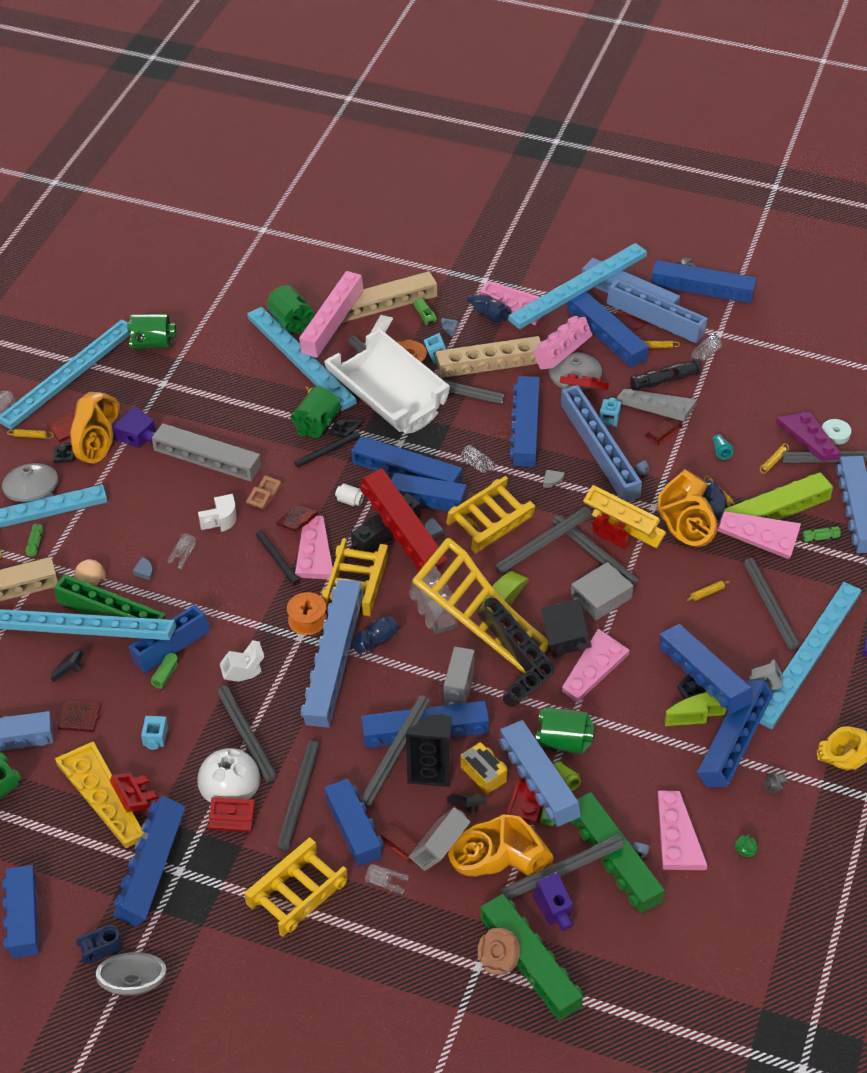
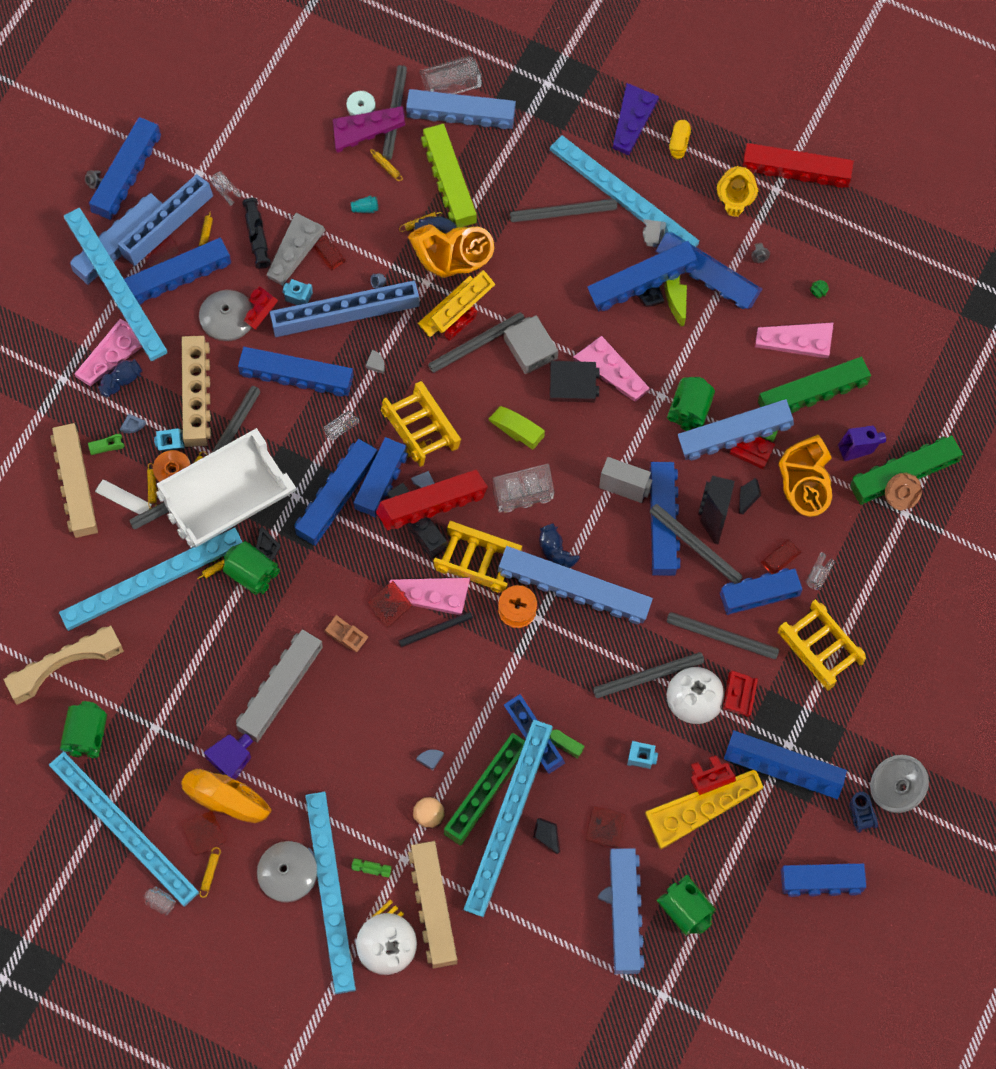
camera: 85 degrees left, 20 degrees up
(63, 453) = (247, 833): black piece -> none
(183, 549) = (415, 719): clear hinge -> none
(196, 297) = (26, 682): none -> tan arch
(223, 516) = (374, 673): white brick -> none
(244, 665) = (573, 668): white brick -> none
(290, 309) = (80, 579): green cylinder -> none
(327, 449) = (294, 567): black bar -> none
(331, 314) = (110, 532): bright pink brick -> none
(349, 495) = (367, 551): white brick -> none
(439, 839) = (795, 519): light grey brick -> none
(484, 768) = (720, 468): brick -> none
(487, 590) = (549, 428): yellow bar -> none
(517, 650) = (616, 413): black beam -> none
(543, 540) = (461, 382): dark grey axle -> none
(562, 342) = (197, 315): bright pink brick -> none
(564, 866) = (830, 429): dark grey axle -> none
(570, 777) = (732, 410): lime cone -> none
(641, 848) = (811, 368): sand blue hinge -> none
(707, 590) = (540, 258): yellow piece -> none
(765, 533) = (487, 195): bright pink wing -> none
(821, 534) = (488, 150): bright green axle -> none

